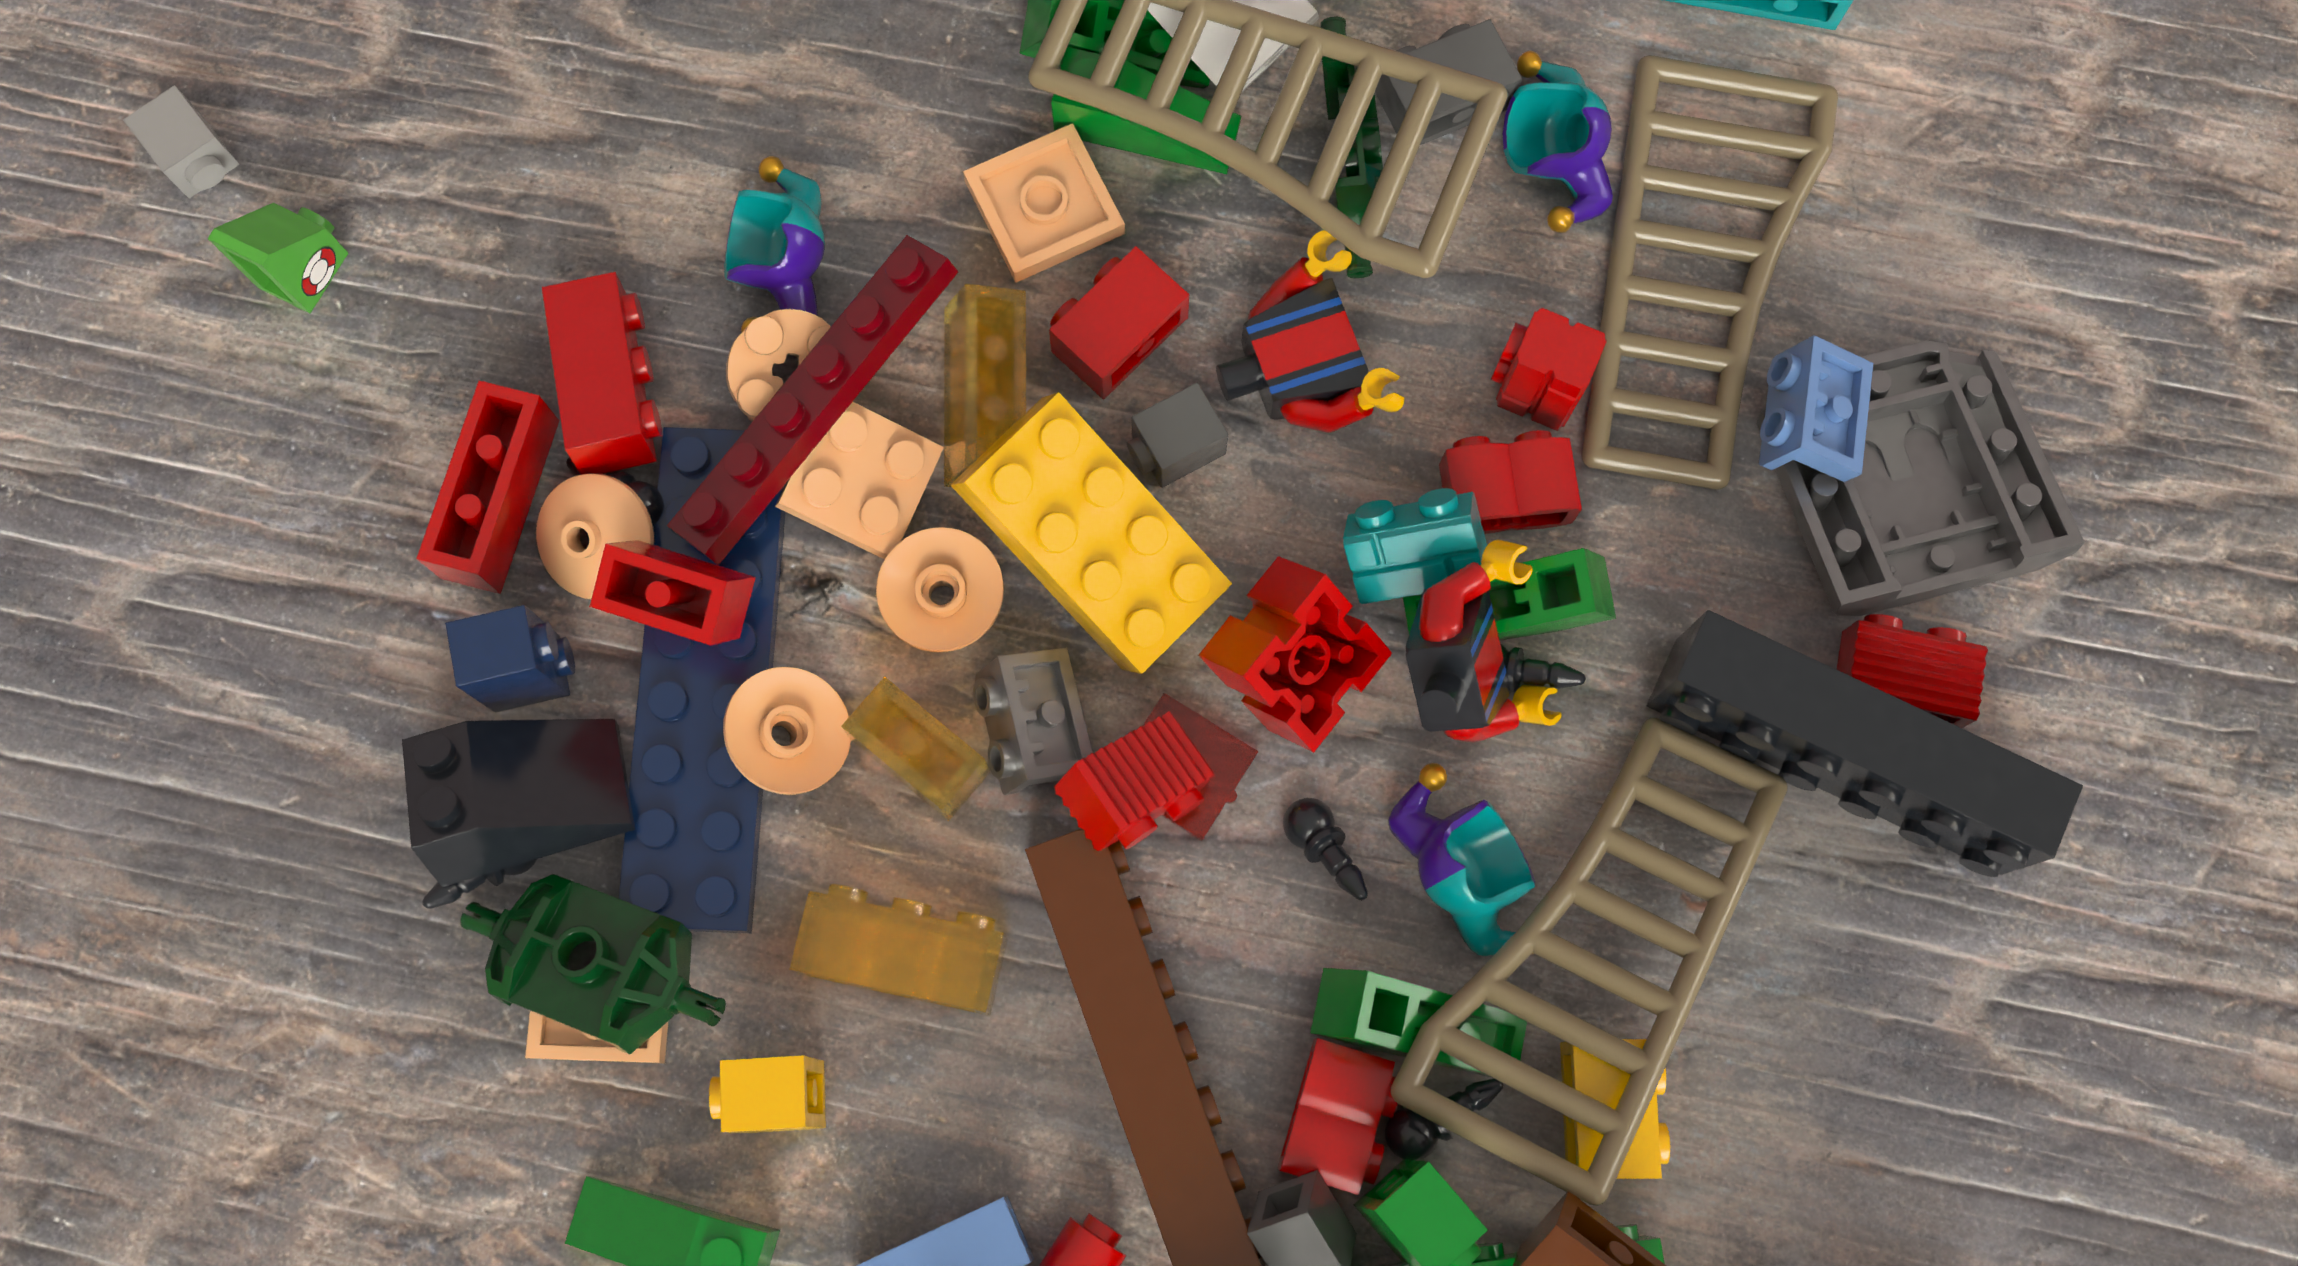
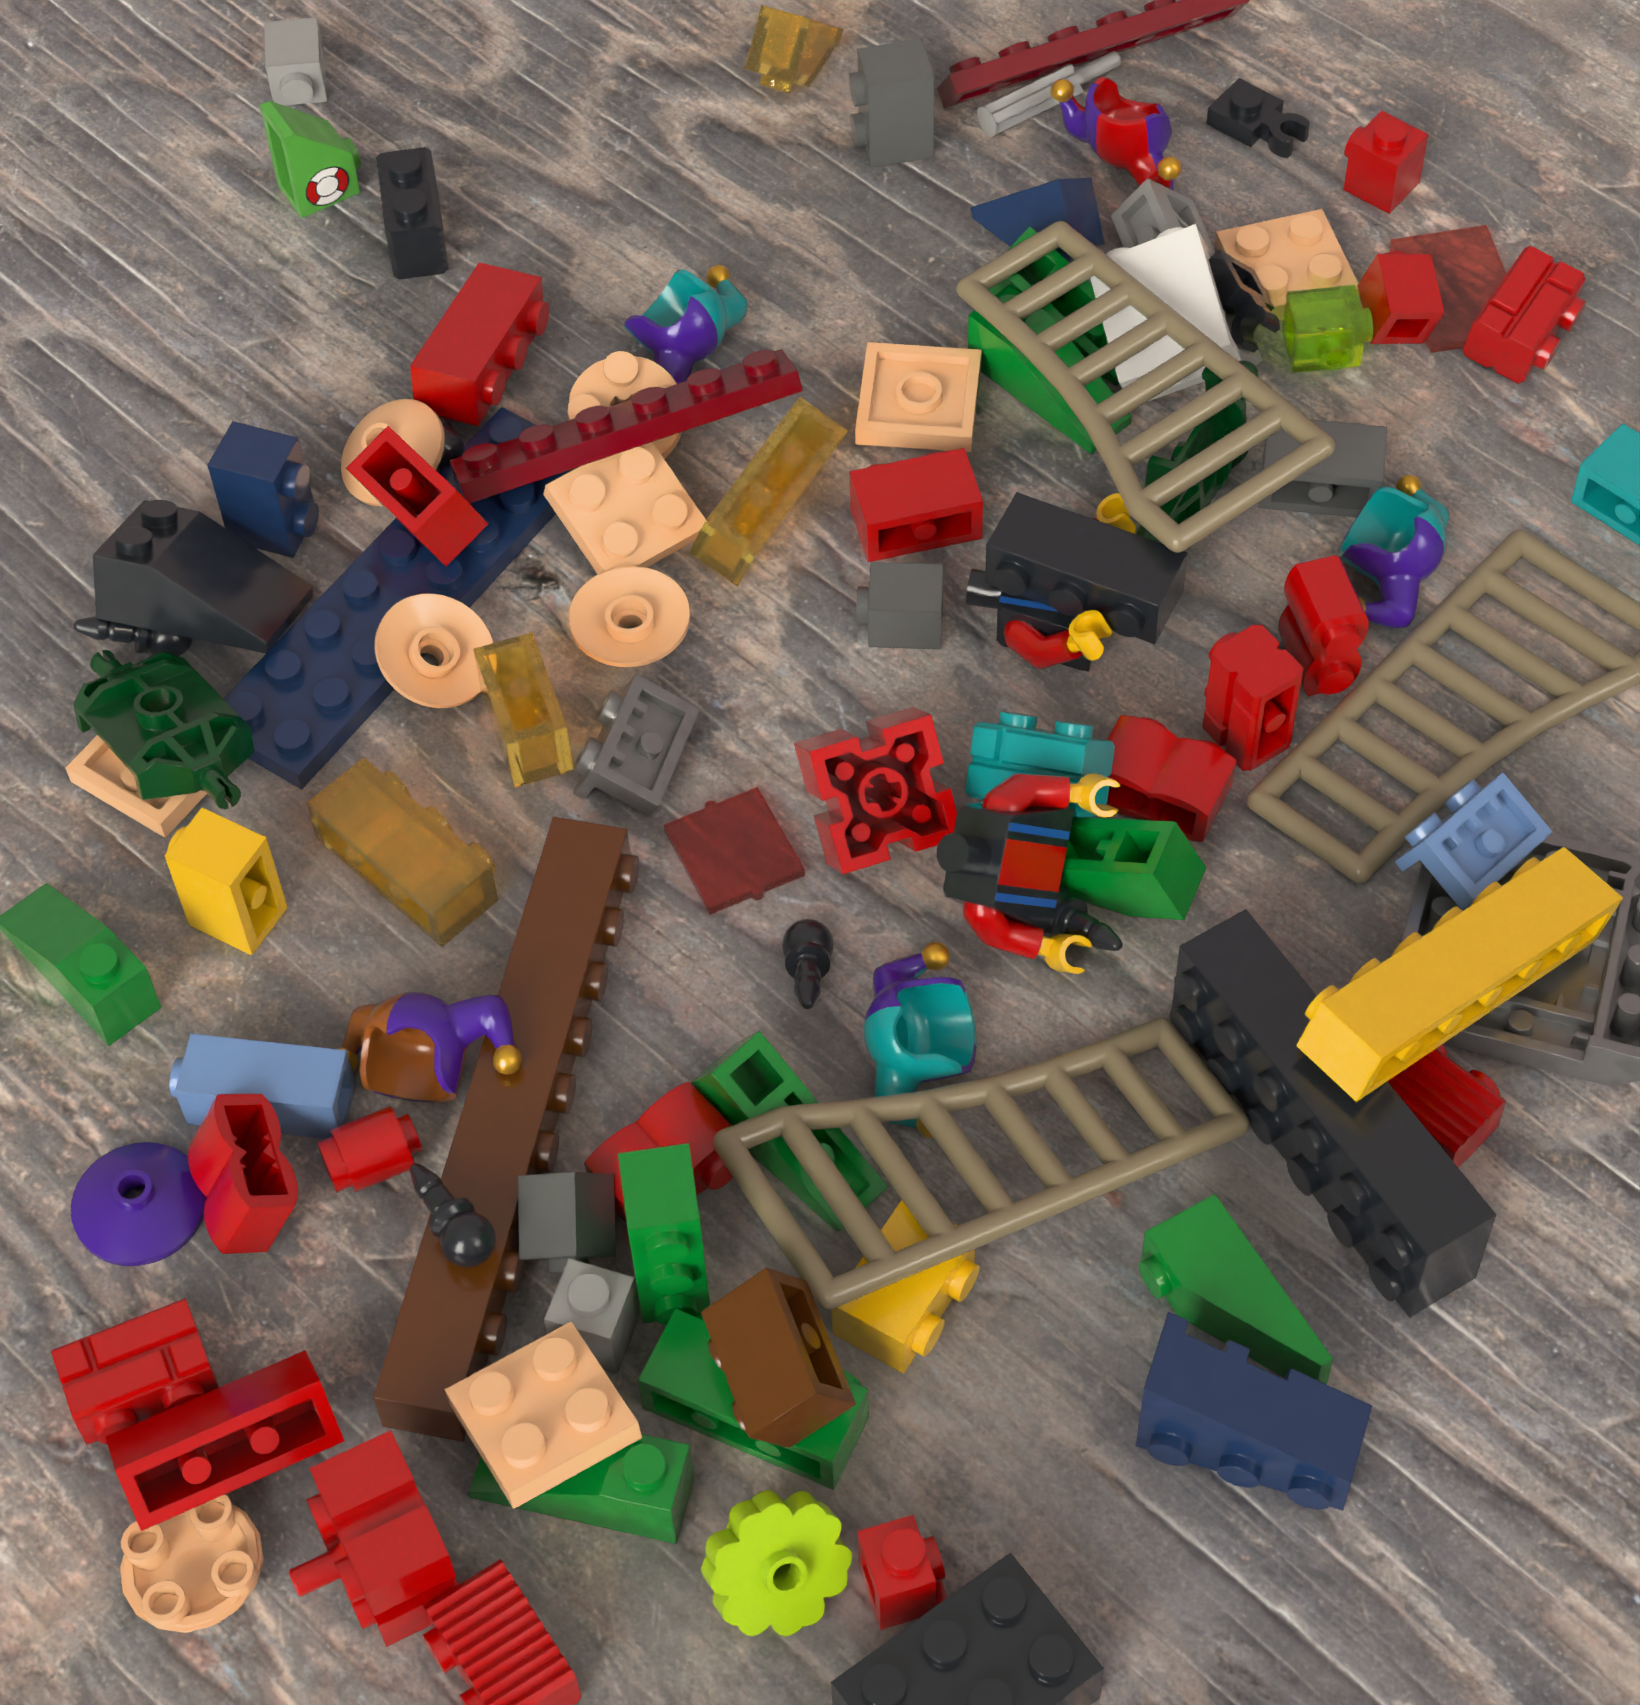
camera: 35 degrees right, 20 degrees down
(428, 258) = (412, 213): none -> black brick
(488, 487) = (338, 373): red brick -> none
(1064, 1142) = (419, 1043): none -> piece
(1091, 533) = (772, 618): yellow brick -> none
(1134, 782) = (676, 811): red brick -> none
(1338, 326) = (1085, 567): none -> black brick
(1416, 1137) = (728, 1216): black bar -> none
(1565, 261) = (1323, 625): none -> red brick
(1851, 945) = (1227, 1290): none -> green slope
(1909, 567) = (1456, 972): none -> yellow brick
(1963, 1066) = (1248, 1422): none -> dark blue wedge

